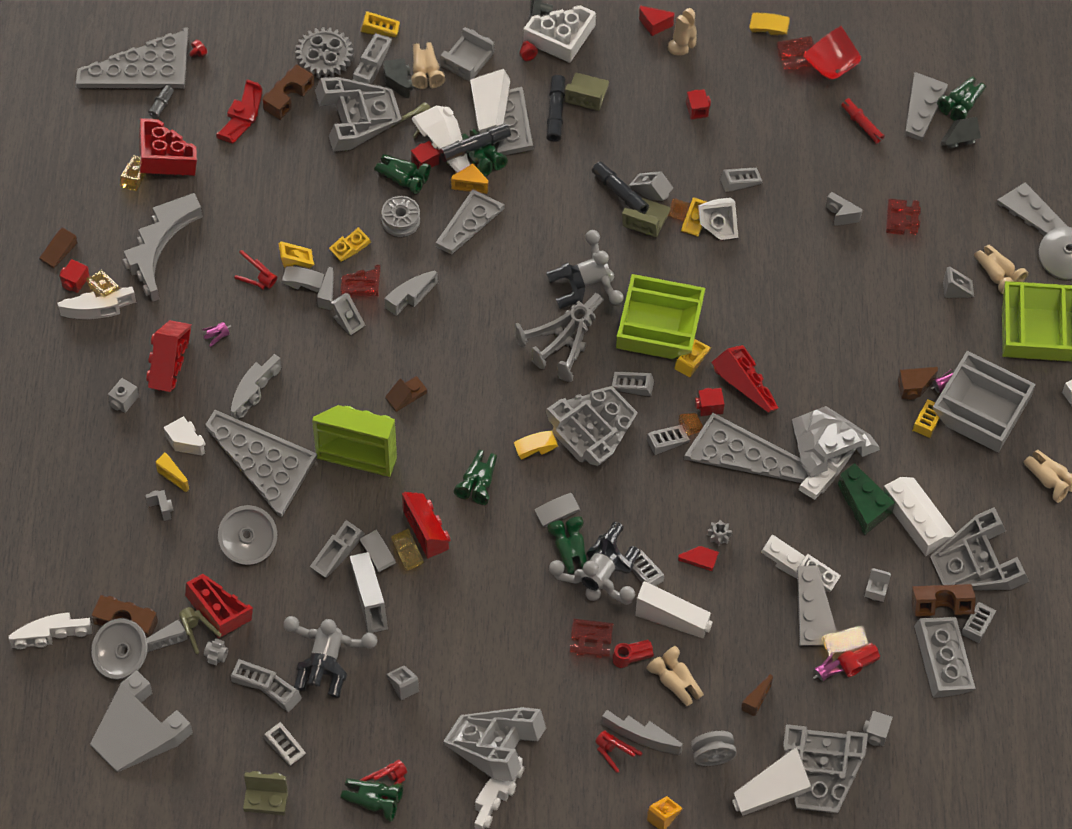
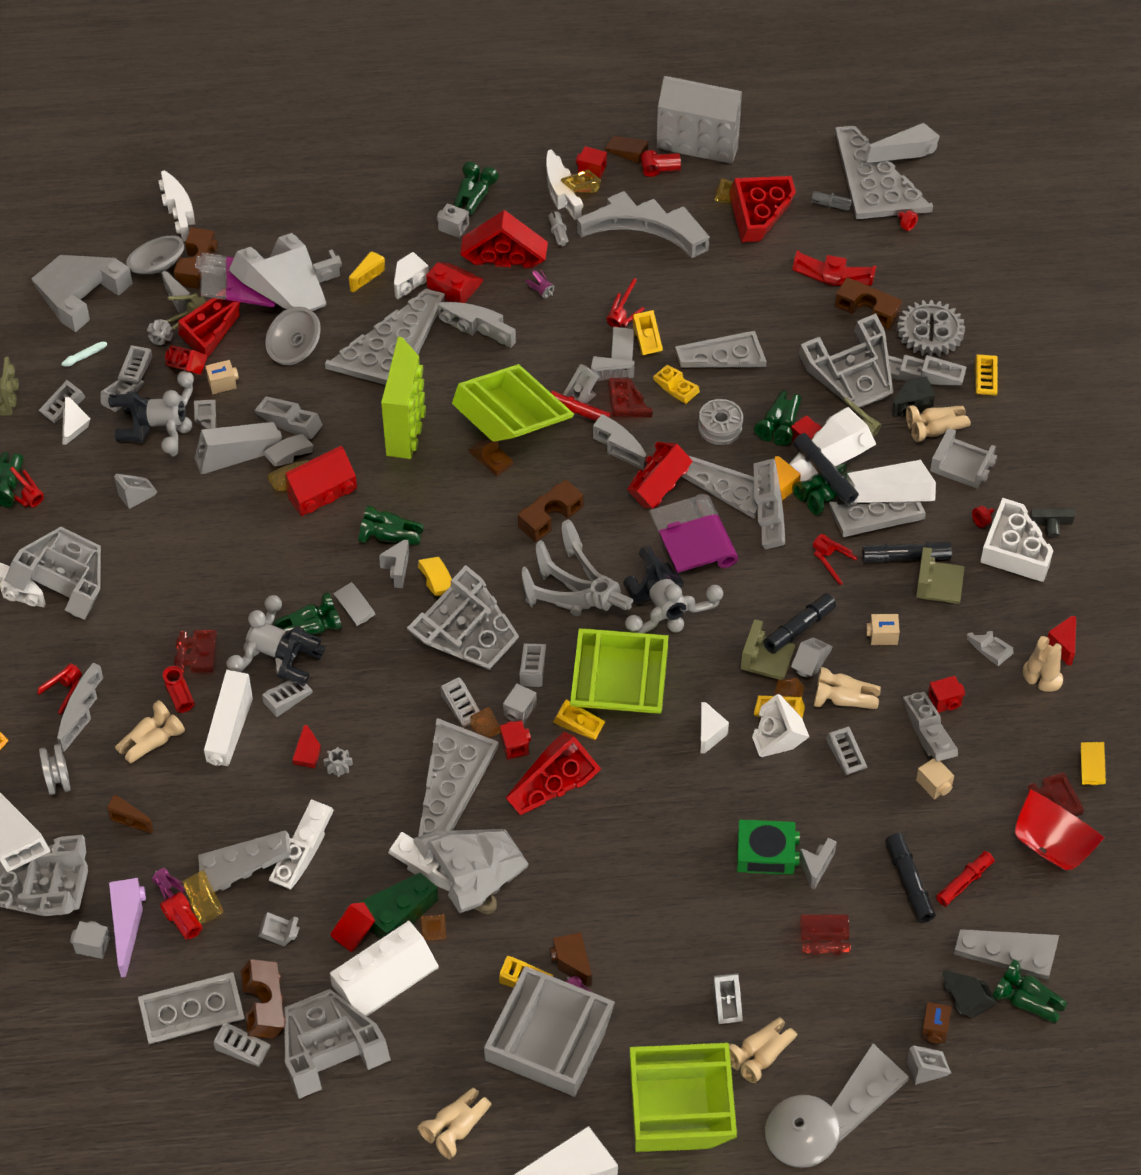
camera: 85 degrees right, 5 degrees down
(62, 175) = (698, 119): none -> light grey slope
(86, 224) = (654, 163): none -> red piece
(89, 375) = (472, 192): none -> dark green piece
(109, 27) = (907, 144): none -> light grey slope
(150, 312) = (558, 228): none -> light grey axle
(172, 574) = (222, 284): none -> door
(179, 533) = (284, 277): none -> wedge
(199, 402) = (452, 281): none -> red slope
(232, 736) = (71, 360): none -> light aqua piece
(260, 627) = (185, 359): none -> red slope
(280, 602) = (221, 376): none -> tan brick
(315, 617) = (205, 413): none -> light grey slope
(316, 731) = (74, 421): none -> white slope
(322, 203) = (726, 351): none -> light grey wing
(364, 323) = (580, 408): none -> red pin
(372, 361) = (508, 403): none -> lime slope
(455, 263) = (660, 474): none -> red wedge
(485, 364) = (560, 499): none -> reddish brown arch
(500, 189) = (769, 501): none -> light grey slope
(513, 470) = (396, 560): none -> light grey slope
(520, 249) = (694, 534): none -> magenta door
(542, 161) = (826, 546): none -> red plant
(631, 134) = (883, 629): none -> tan brick
(654, 69) = (991, 647): none -> light grey slope
(676, 394) = (519, 704): none -> light grey brick
(688, 167) = (846, 691): none -> tan piece
(712, 264) = (713, 728): none -> white slope
(729, 120) = (928, 727): none -> light grey slope
(774, 123) = (935, 778): none -> tan brick
(826, 241) = (767, 847): none -> brick
(852, 700) = (127, 913): none -> lavender slope
(859, 154) = (910, 878): none -> black piece
(878, 475) = (433, 927): none -> clear orange slope
(883, 527) = (353, 926): none -> red slope
(984, 157) = (936, 1023): none -> reddish brown brick
(1017, 170) = (926, 1064): none -> light grey slope

